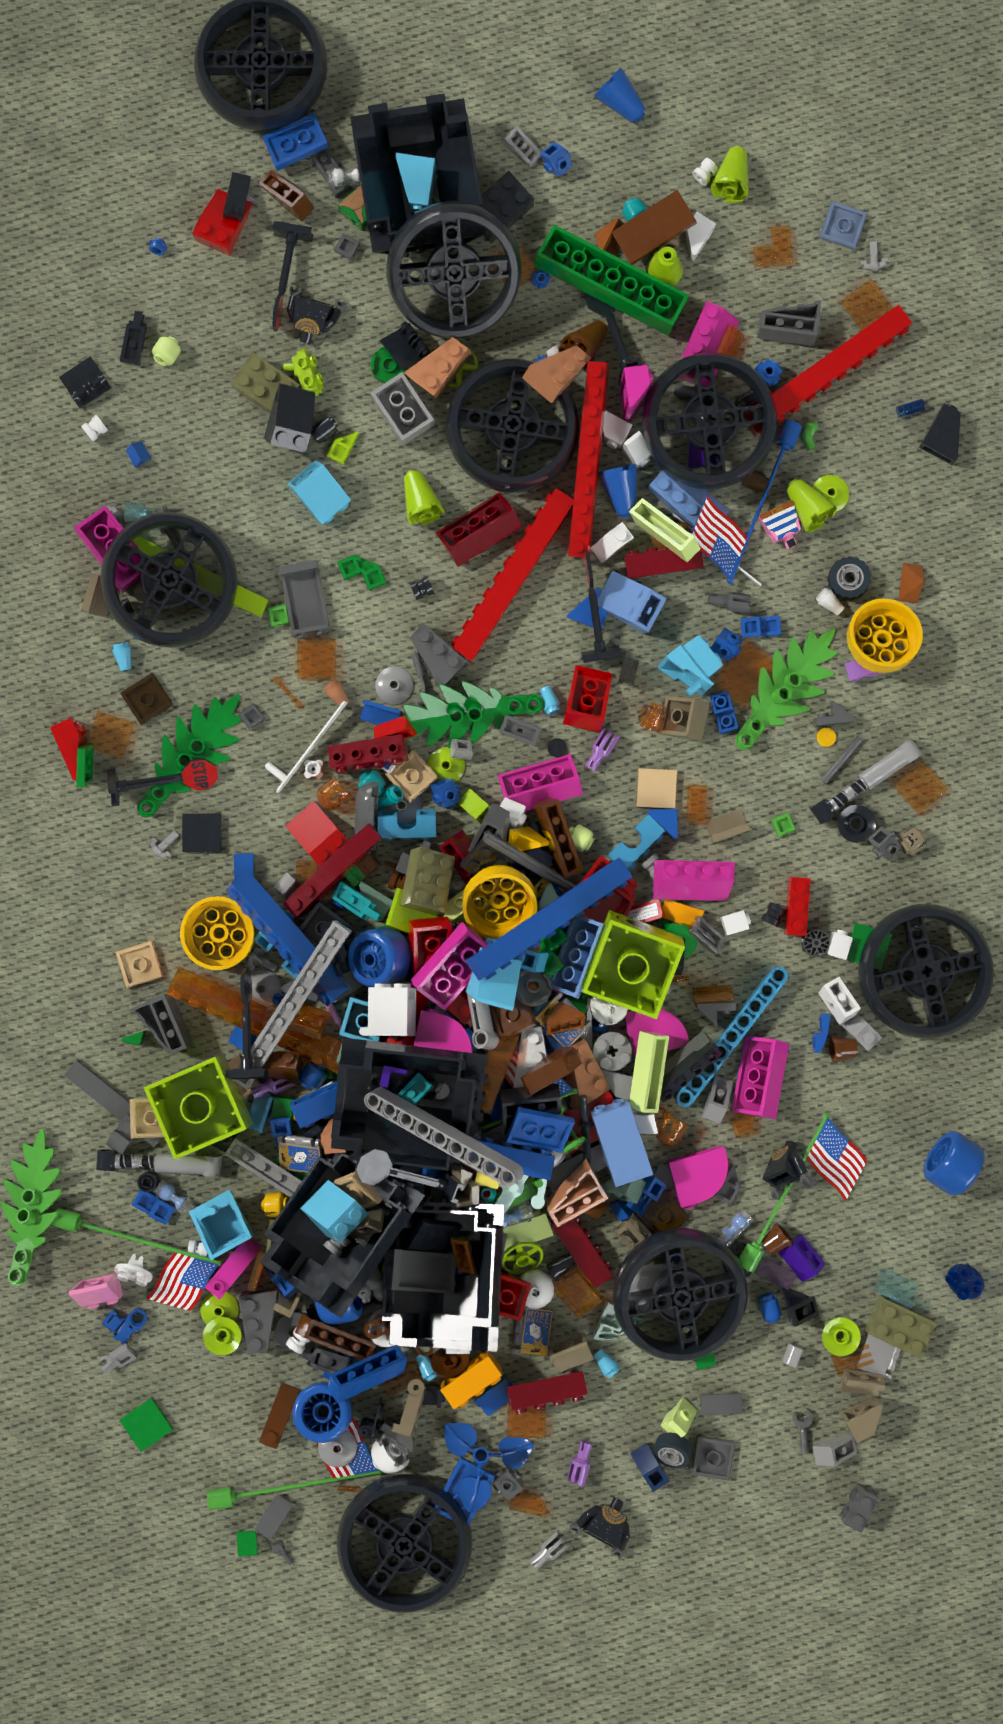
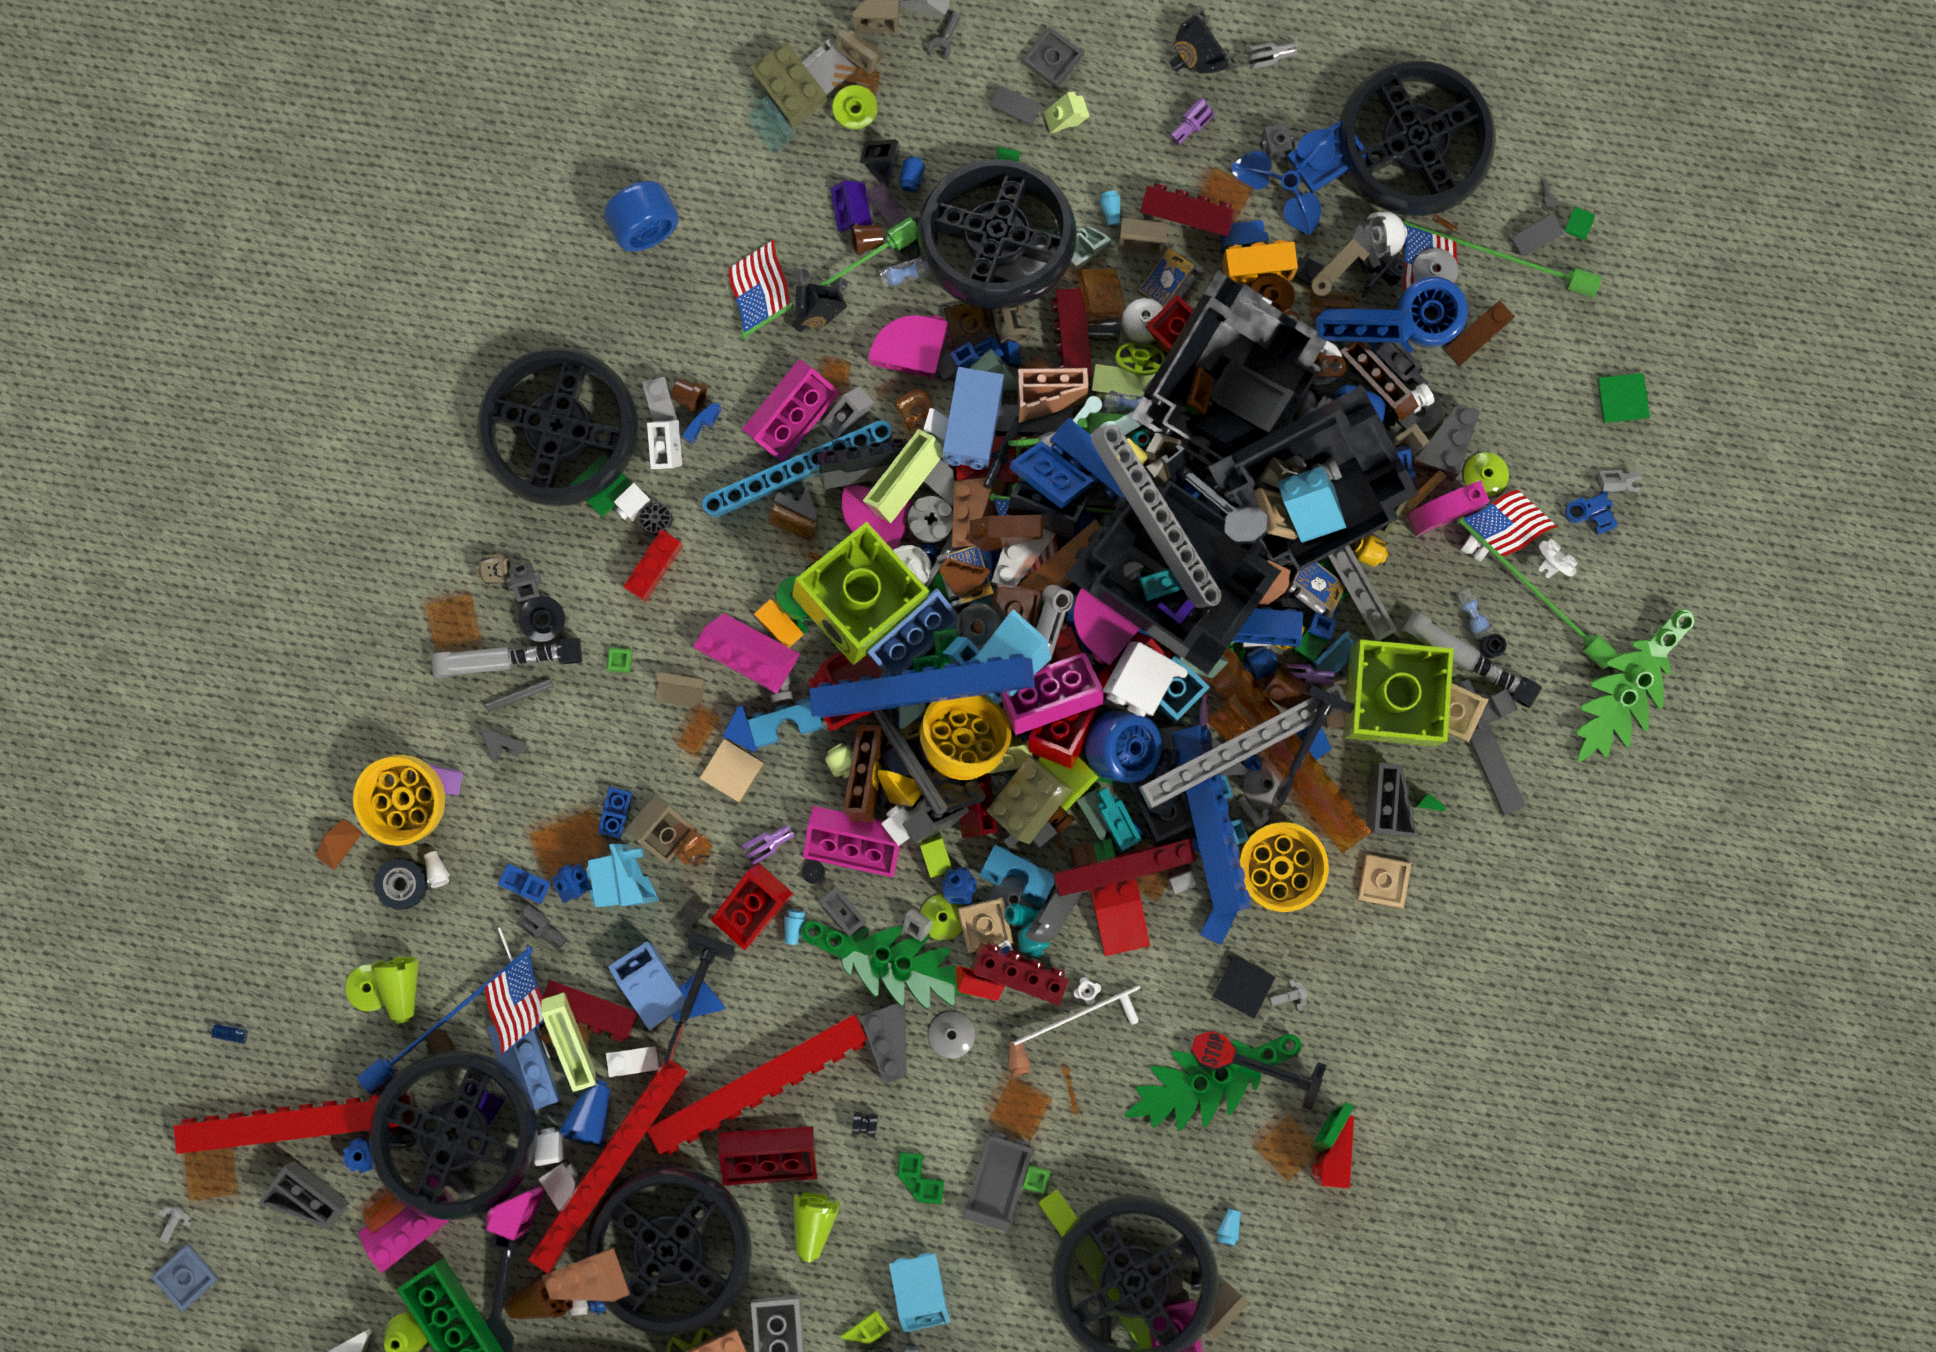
camera: 150 degrees left, 5 degrees down
(97, 1291) = (1604, 560): bright pink slope -> none
(146, 699) = (1228, 1166): dark brown tile -> none
(154, 1206) = (1499, 615): blue slope -> none
(218, 1344) = (1503, 437): lime dish -> none
(221, 1224) = (1438, 558): medium azure piece -> none
(251, 716) = (1124, 1084): dark grey tile -> none
(327, 790) = (1085, 957): clear orange helmet -> none
(378, 713) = (985, 1011): blue panel -> none
(420, 673) = (916, 1031): dark grey piece -> none
(424, 1364) = (1301, 301): medium azure cone -> none
(530, 1504) = (1266, 110): clear orange tile -> none
(647, 911) = (814, 645): slope -> none
(650, 1467) = (1122, 80): dark blue slope -> none
(672, 1450) = (1090, 85): black wheel -> none
(700, 935) = (772, 583): flat silver tile -> none
(730, 1187) = (884, 315): dark grey tile -> none
(735, 922) = (727, 584): white brick -> none
(773, 914) = (682, 571): black wheel -> none
(779, 253) = (270, 1286): clear orange tile -> none
(781, 524) = (439, 981): torso -> none
(787, 685) = (531, 805): bright green plant -> none
(792, 1355) = (914, 115): light grey brick -> none
(807, 434) = (355, 1066): bright green arm -> none
(826, 737) = (521, 728): yellow piece -> none
(943, 435) = (211, 984): black slope -> none
(968, 1289) = (697, 94): clear blue plate -> none

